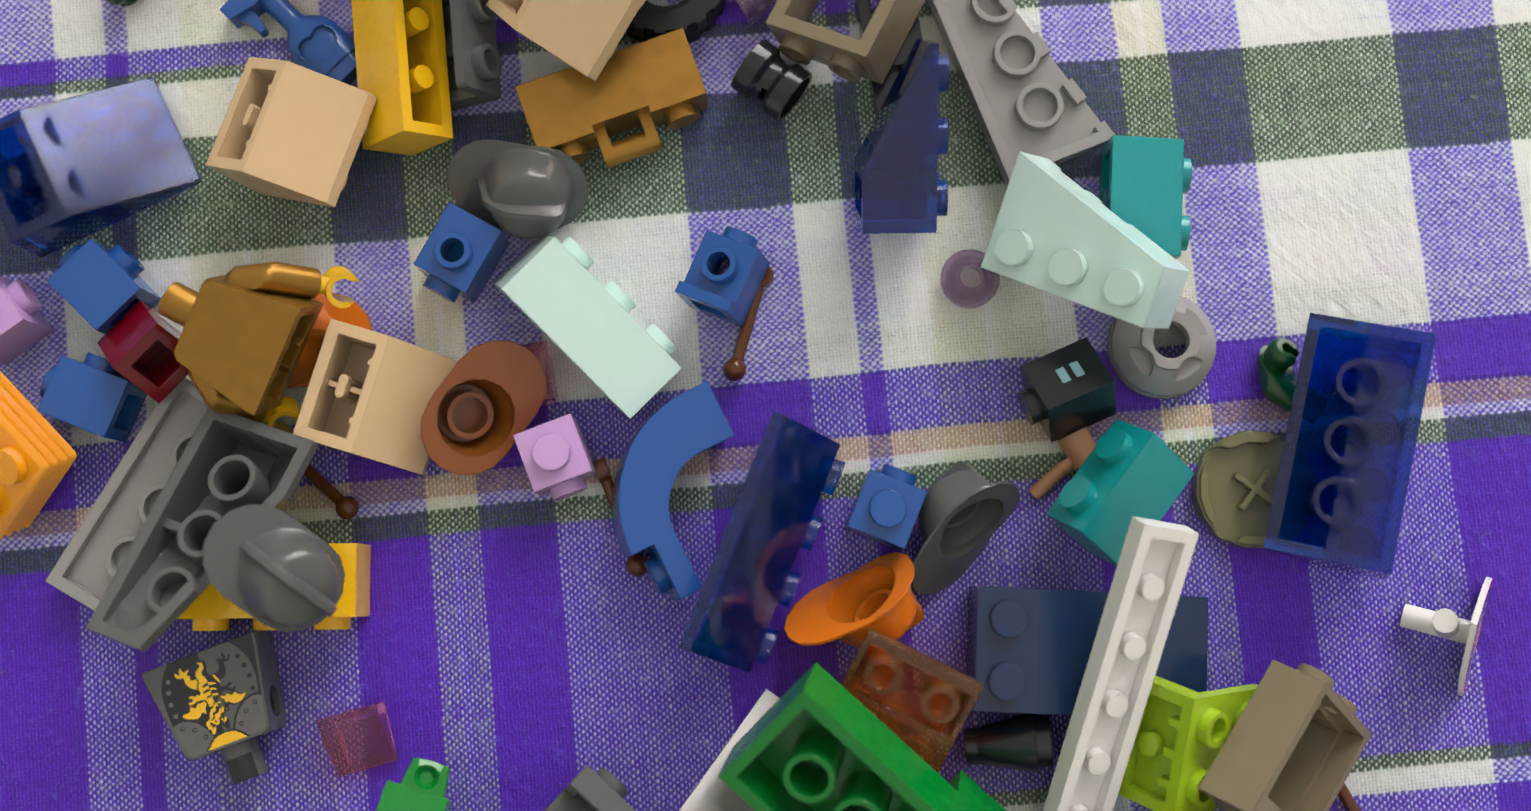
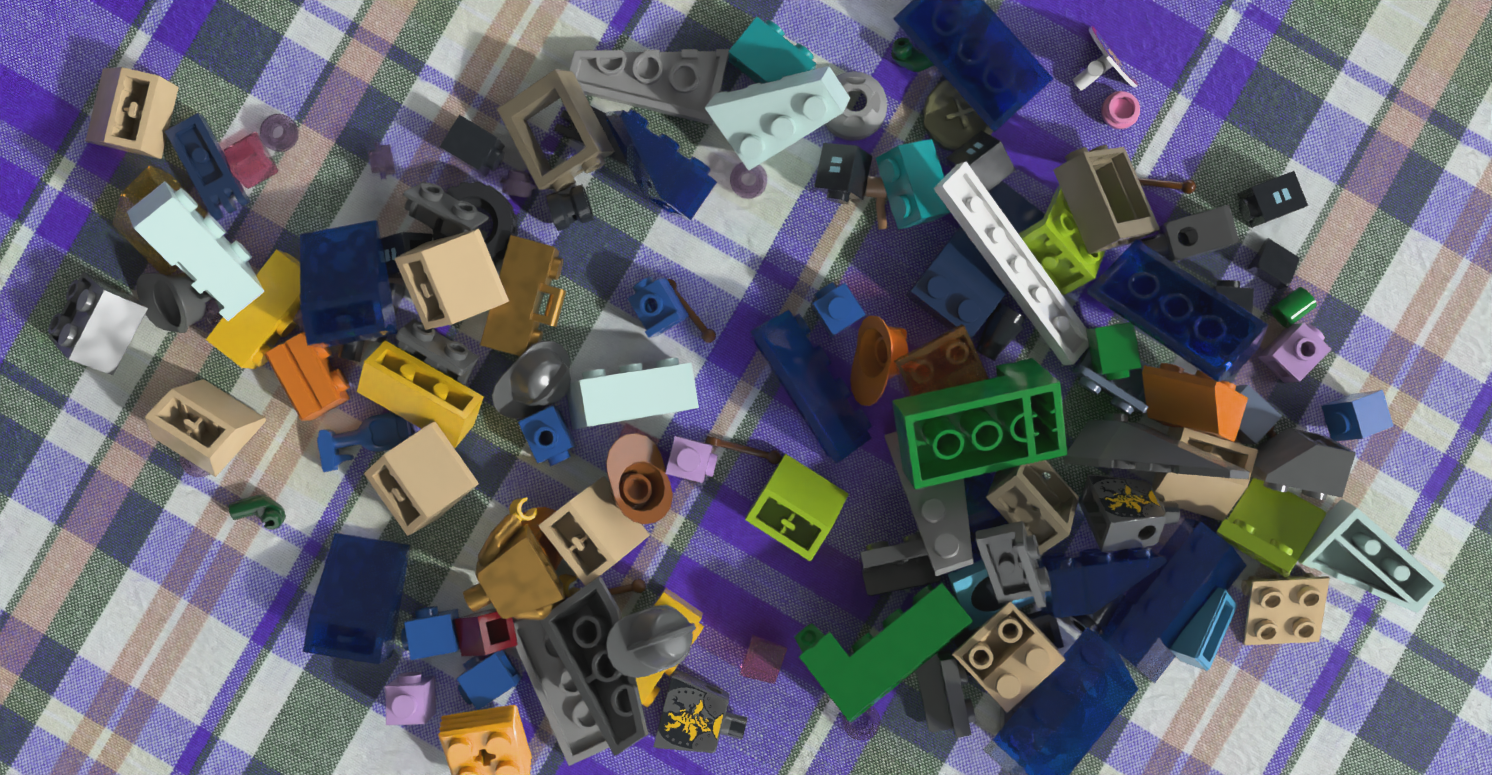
camera: 50 degrees left, 5 degrees up
(589, 640) = (797, 507): none -> lime slope
(645, 480) = (734, 420): blue arch -> none
(957, 523) = (870, 277): dark grey piece -> none
(1220, 562) = (985, 157): none -> black brick
(1414, 696) = (1120, 110): none -> bright pink plate

